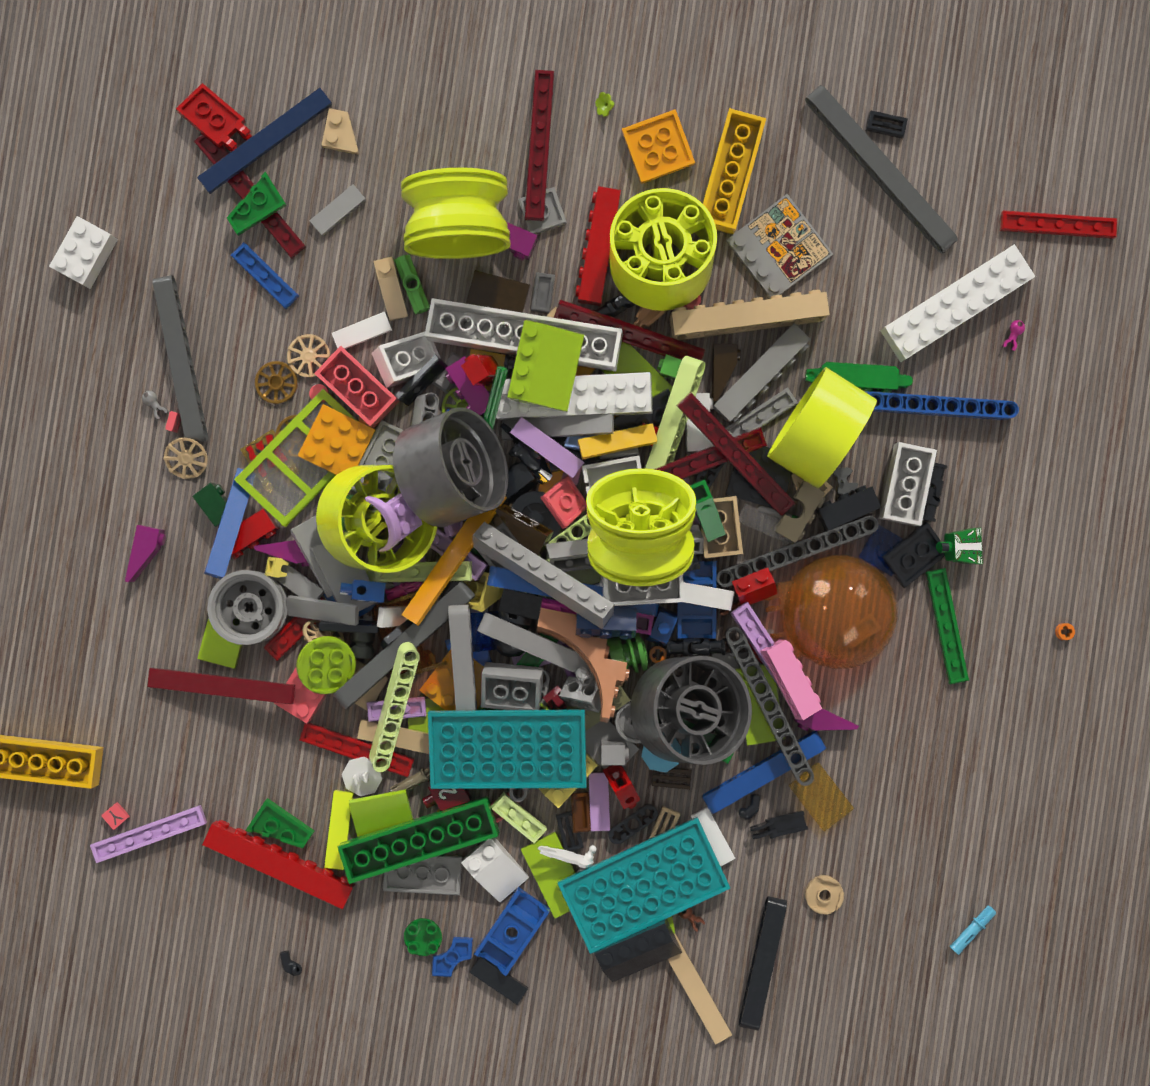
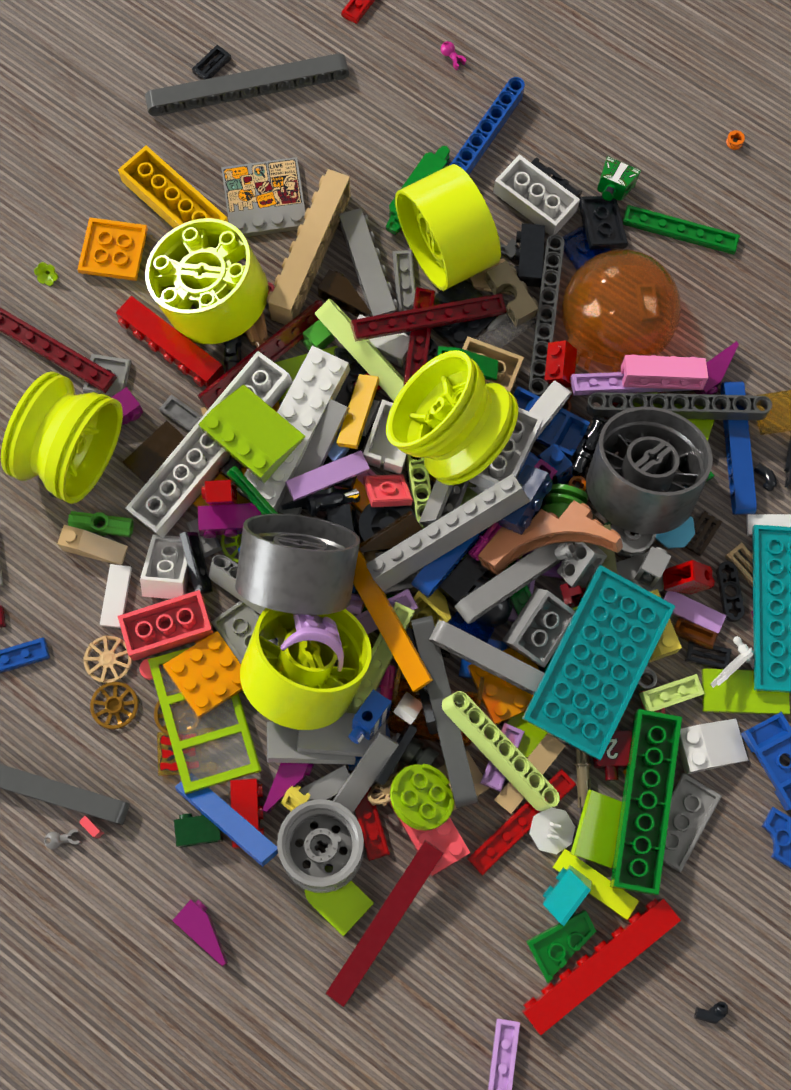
camera: 65 degrees left, 15 degrees down
(185, 458) = (134, 835): tan wheel -> none
(315, 813) = (566, 894): none -> teal slope
(422, 937) = (748, 856): green dish -> none
(957, 303) = (399, 83): white brick -> none

